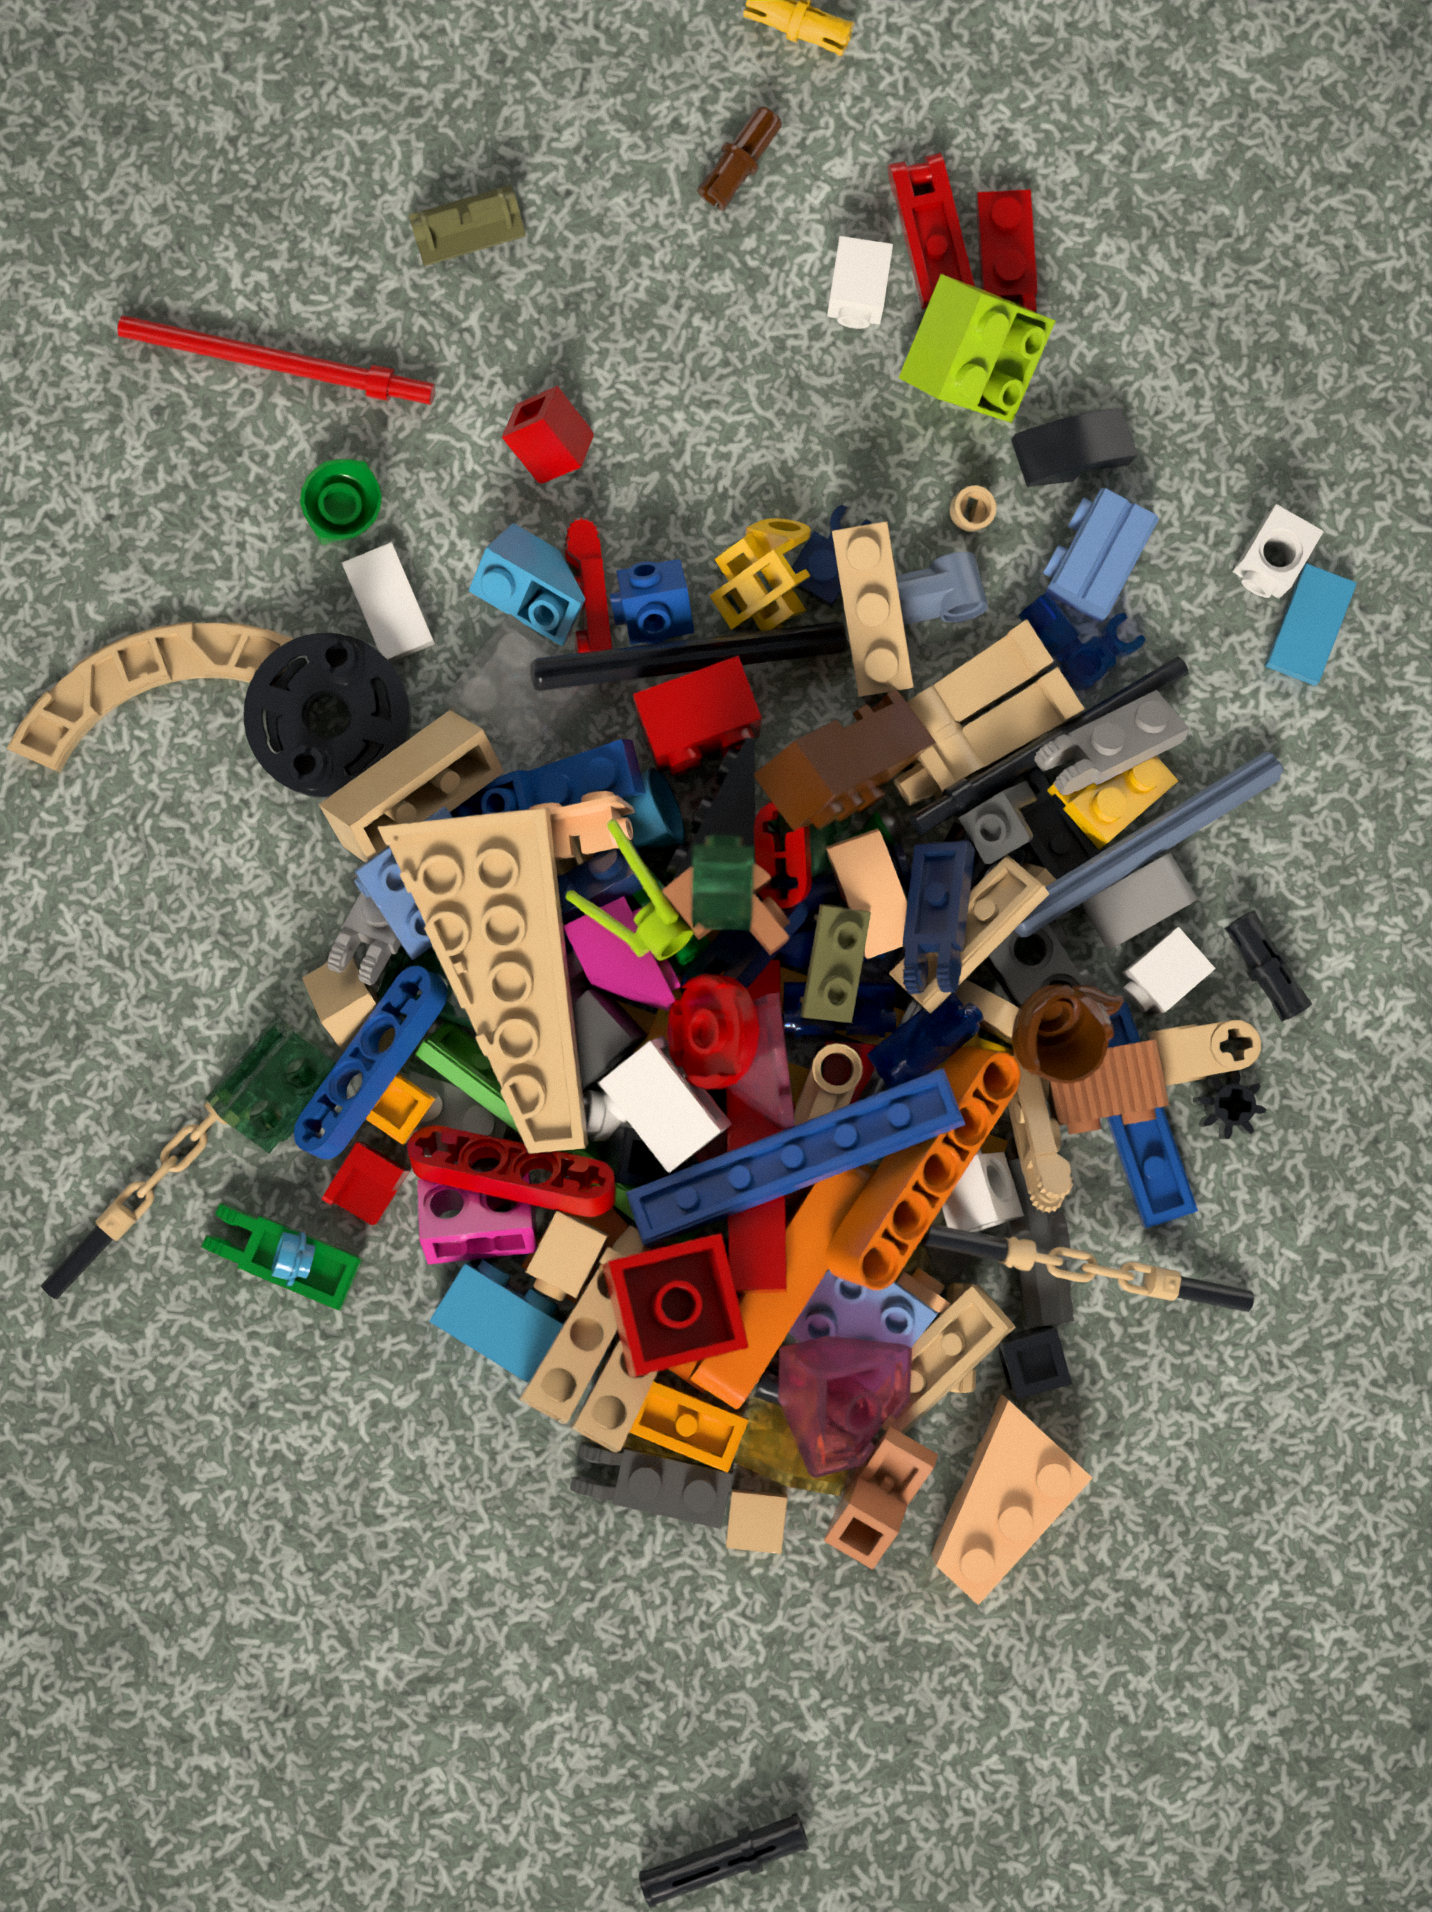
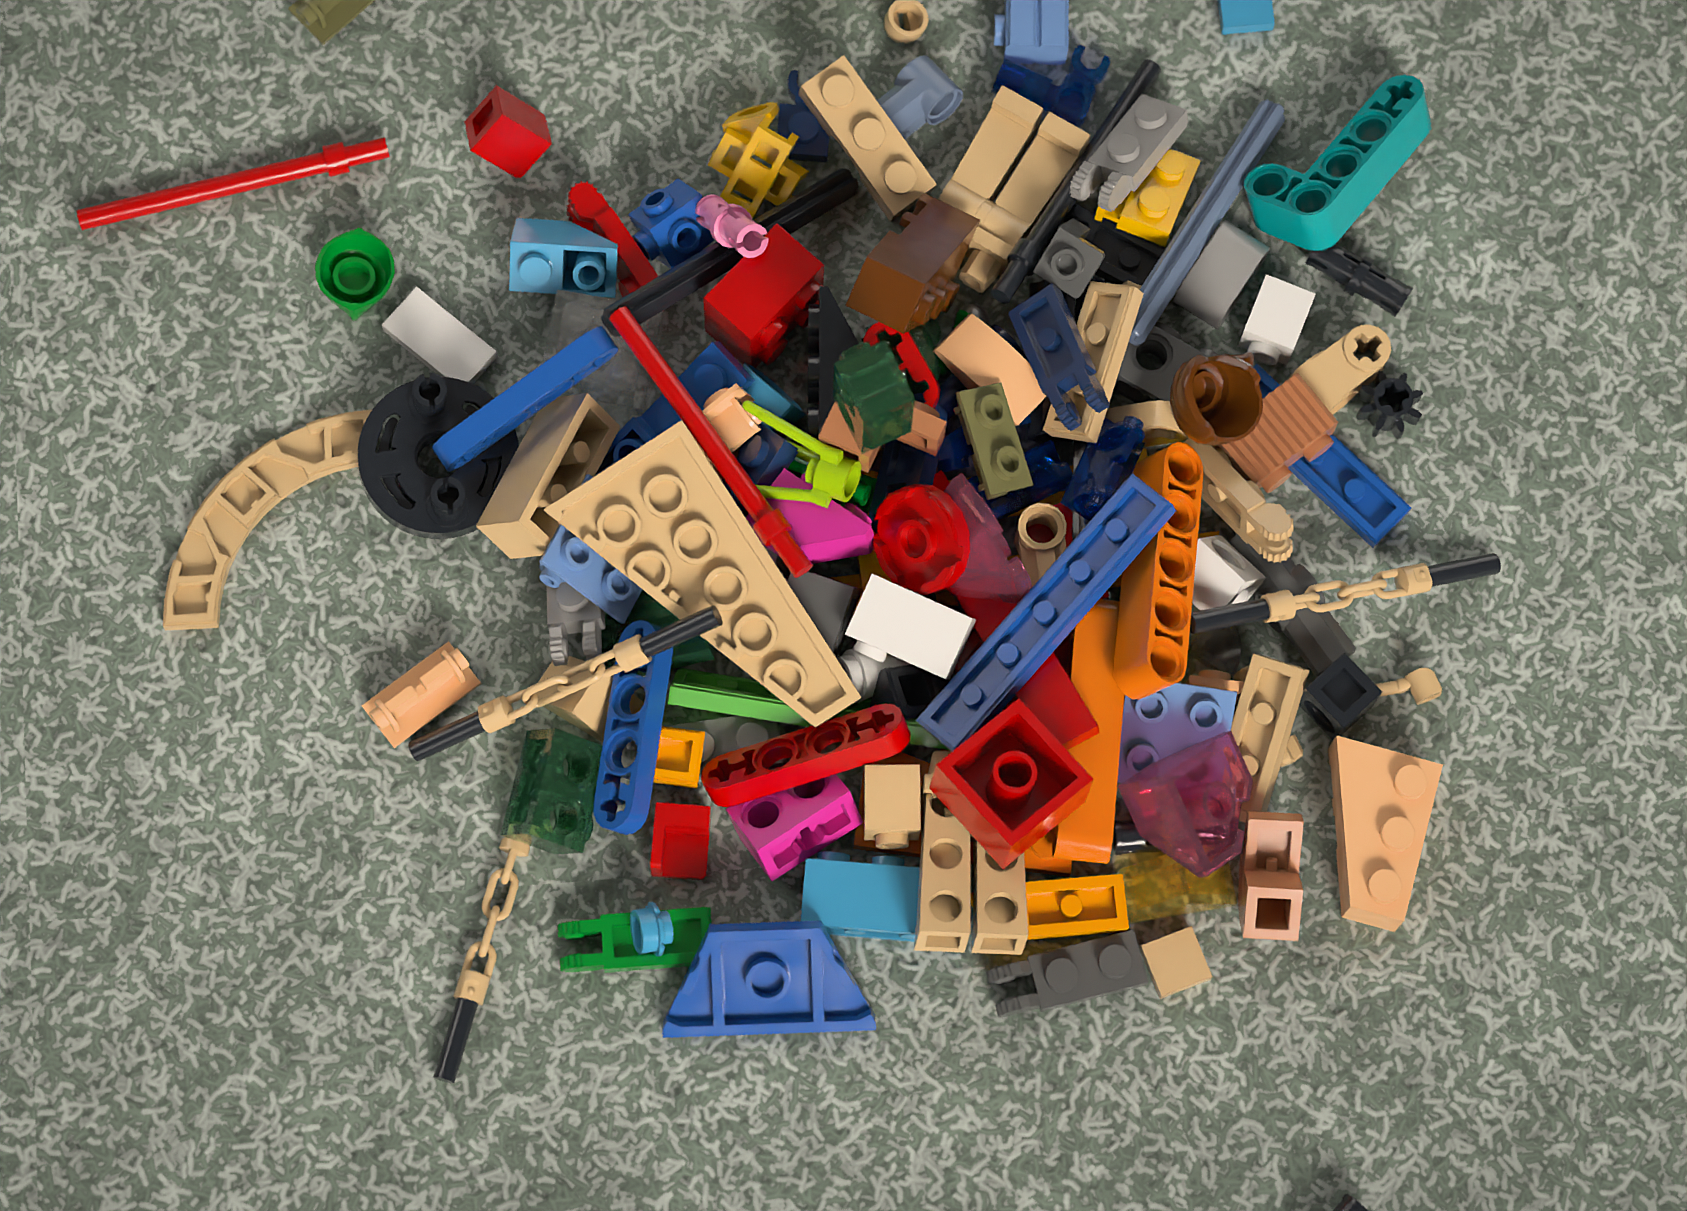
camera: 30 degrees left, 10 degrees down
(204, 928) = (421, 694): none -> light nougat hinge
(375, 1357) = (767, 983): none -> wing
(390, 1000) = (628, 654): none -> piece
(423, 706) = (525, 398): none -> blue beam
(578, 948) = (769, 524): none -> red bar
(696, 636) = (731, 226): none -> bright pink pin
(1118, 1379) = (1421, 682): none -> tan hand
(1376, 834) = (1326, 200): none -> teal beam

